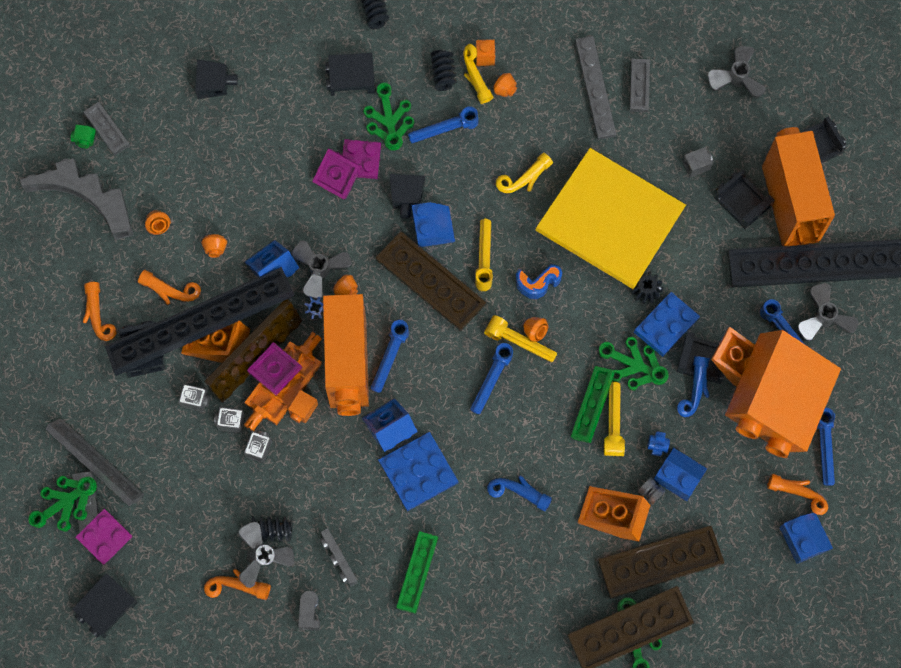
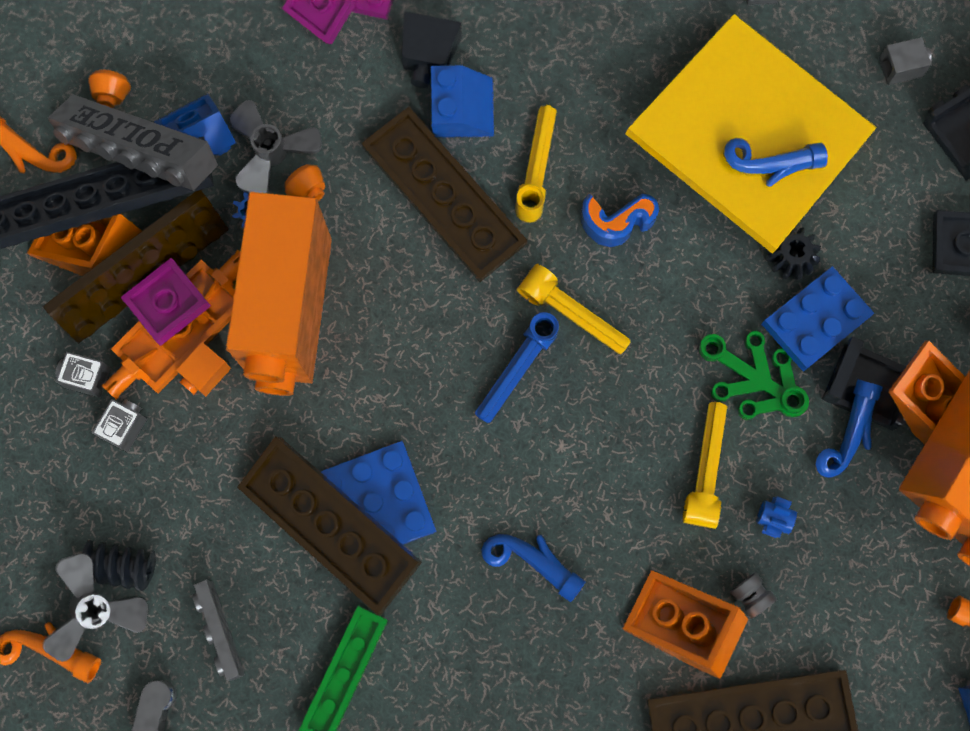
camera: 10 degrees right, 5 degrees up
(157, 222) = (25, 40): orange cone -> none
(194, 398) = (31, 330): flat silver brick -> none
(239, 276) = (133, 142): none -> flat silver brick
(390, 354) = (358, 304): blue axle -> none
(390, 425) = (338, 420): blue slope -> none
(394, 485) = (329, 525): none -> dark brown plate
(530, 176) = (630, 47): yellow plant -> none
(535, 328) = (602, 295): orange cone -> none
(592, 404) = (676, 434): green plate -> none
(631, 236) = (782, 165): none -> blue plant
(680, 474) = (806, 574): blue slope -> none

